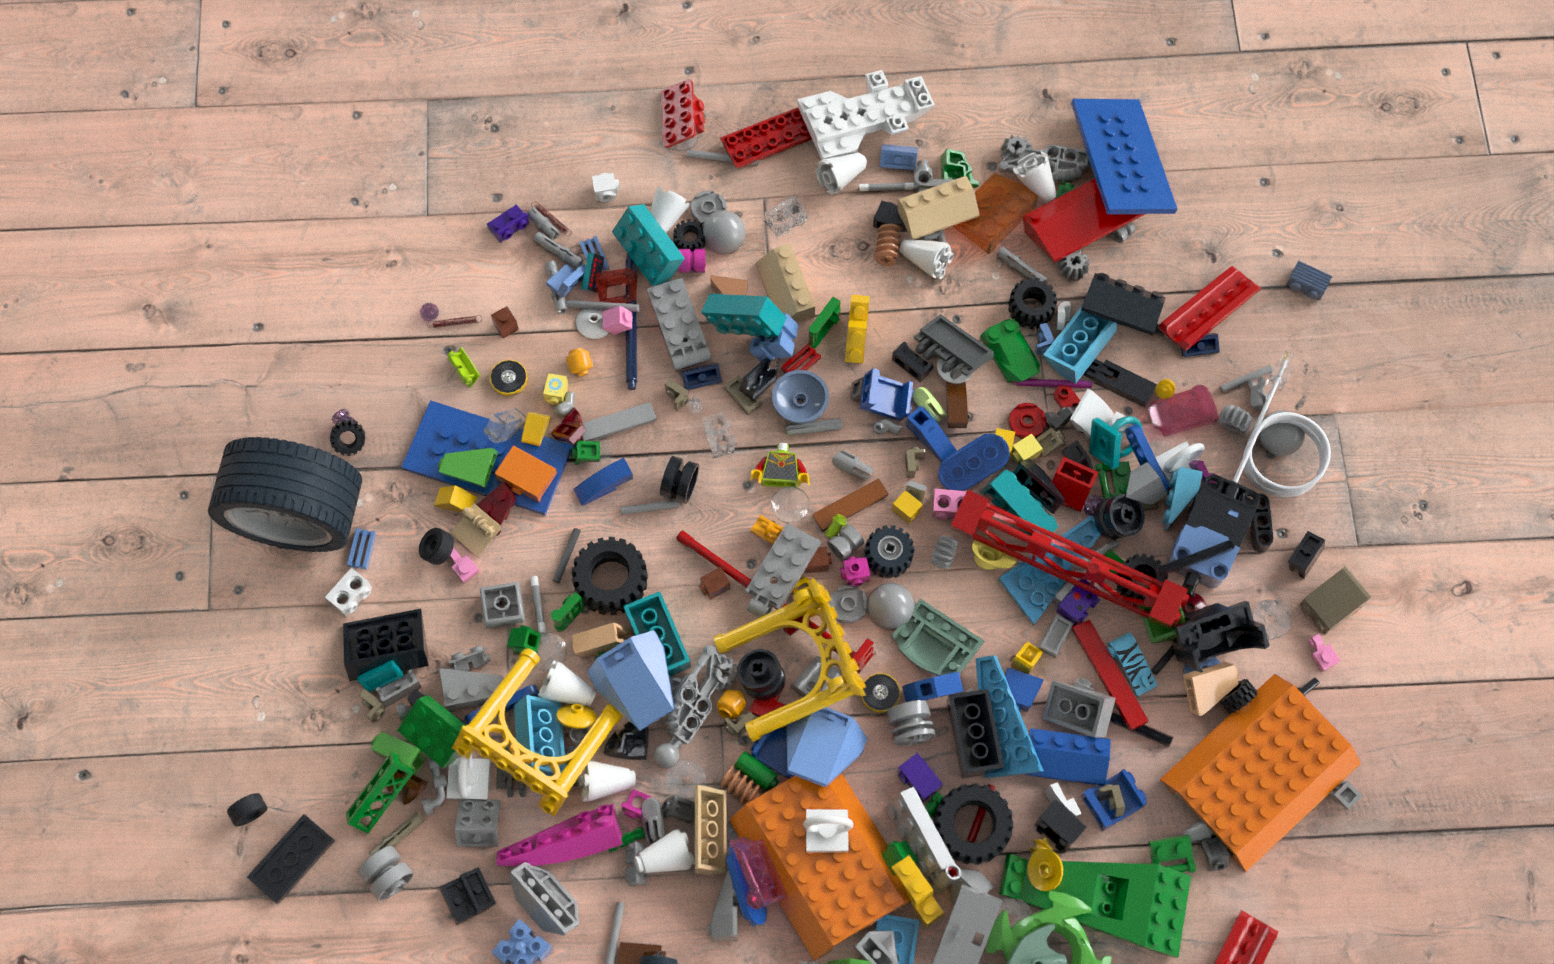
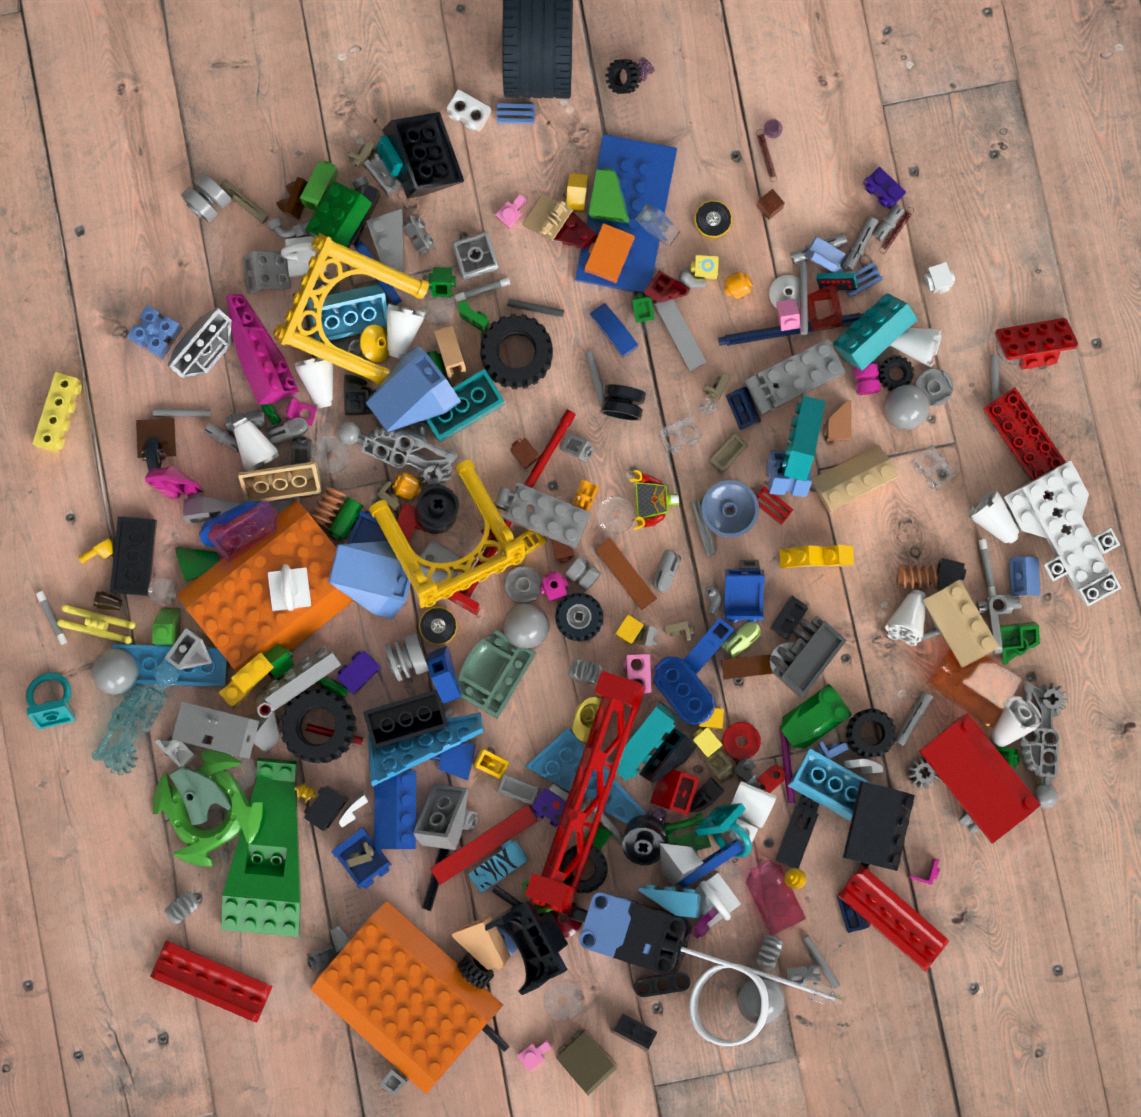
camera: 85 degrees right, 15 degrees up
(247, 809) = (249, 63): black tyre -> none
(290, 859) = (212, 112): black plate -> none
(374, 788) = (276, 171): green fence -> none
(436, 546) = (524, 182): black tyre -> none
(464, 366) = (710, 178): lime hinge -> none
(467, 896) = (199, 275): black slope -> none
(535, 428) = (661, 254): yellow slope -> none
(649, 891) = (221, 436): none -> light grey pin
(693, 942) = (172, 482): none -> dark pink wedge
(716, 532) = (577, 447): none -> light grey bracket
(758, 379) = (743, 465): black hinge -> none
(781, 937) = (195, 562): none -> green slope
(824, 322) = (823, 526): green container -> none
(836, 525) = (601, 563): lime pin -> none
(1038, 870) = (282, 797): yellow dish -> none
(1123, 156) = (1055, 813): blue plate -> none
(1168, 270) = (933, 873): none -> dark pink bracket
(1173, 849) = (319, 916): green plate -> none
(1190, 559) = (595, 914): black axle -> none
(1309, 280) = (942, 1022): sand blue brick -> none

